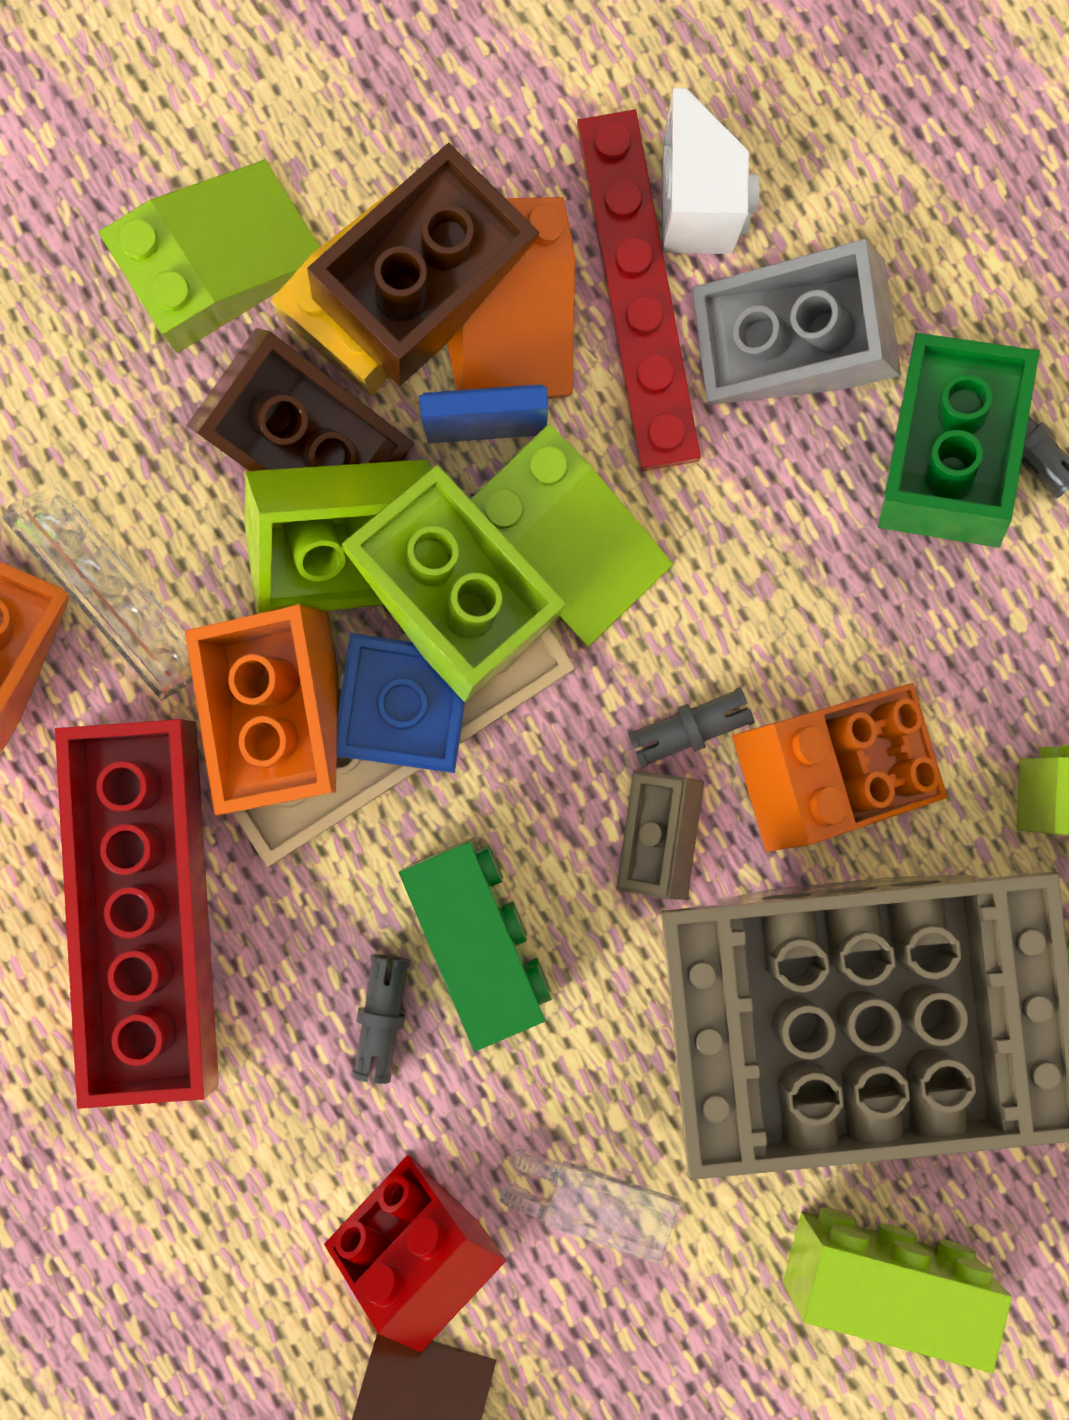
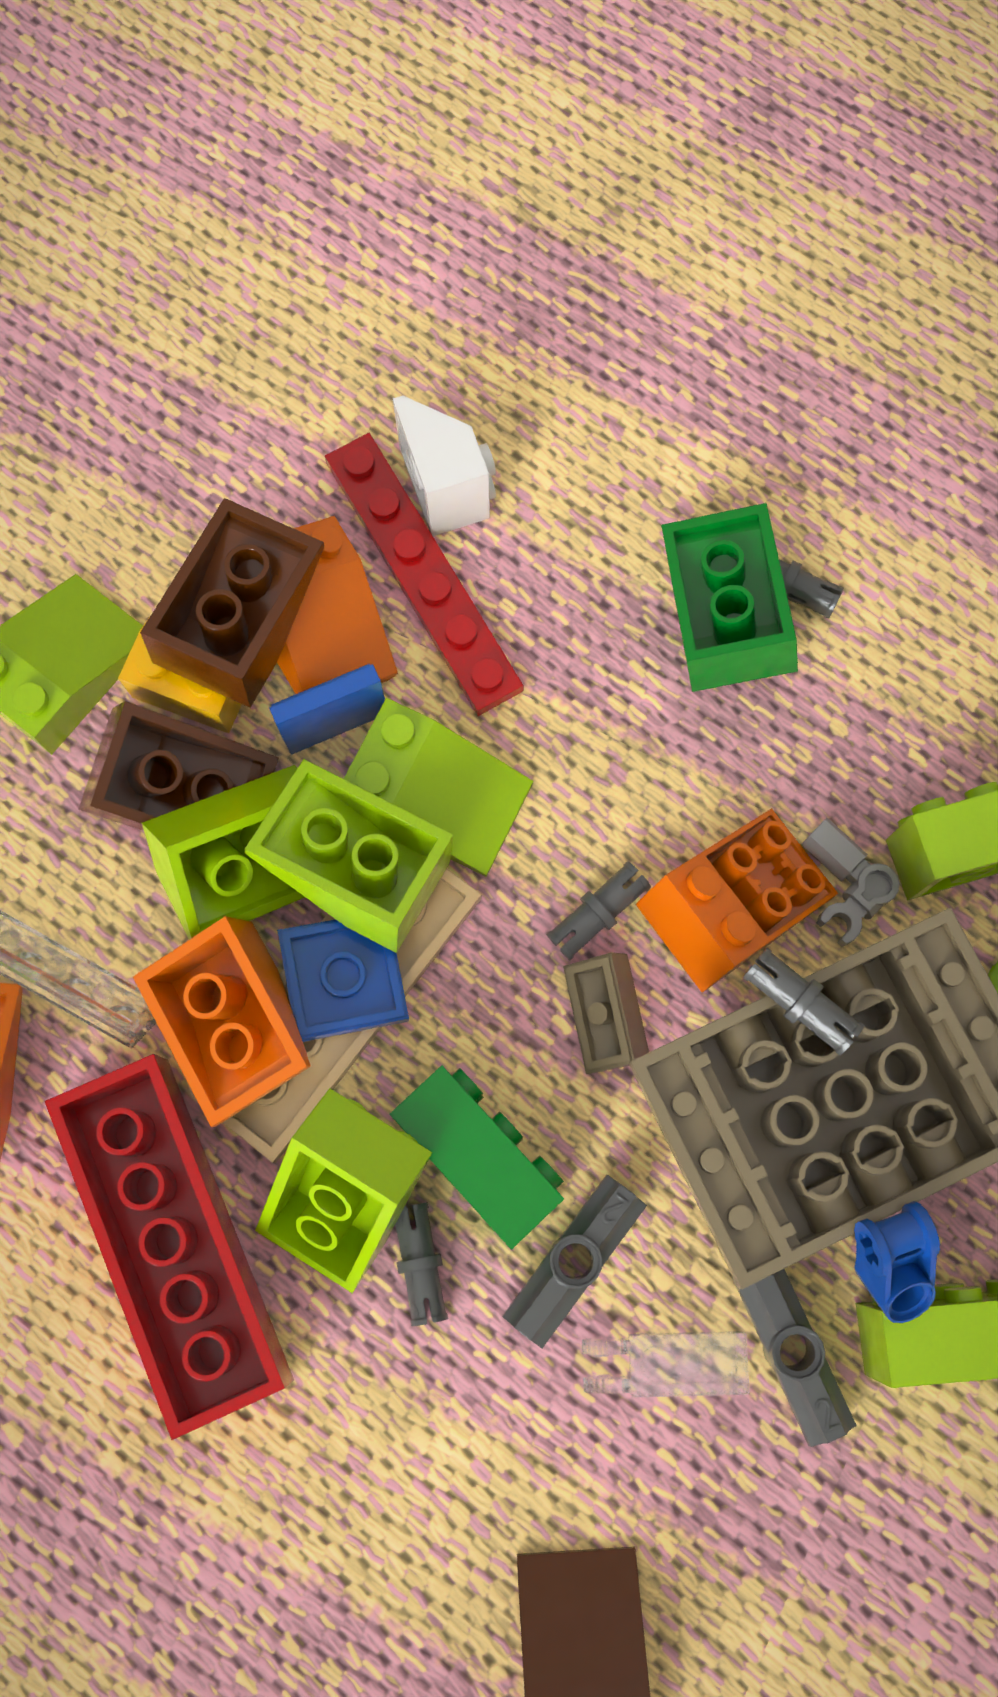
camera: 15 degrees left, 10 degrees down
(327, 927) = (341, 1189): none -> lime brick
(413, 1256) = (524, 1472): red slope -> none
(504, 1096) = (549, 1291): none -> dark grey piece
(723, 1272) = (809, 1383): none -> dark grey piece
(798, 326) = (564, 554): light grey slope -> none
(859, 1210) = (899, 1261): none -> blue piece
(865, 918) = (803, 1001): none -> dark grey pin
(985, 802) = (870, 884): none -> light grey bar

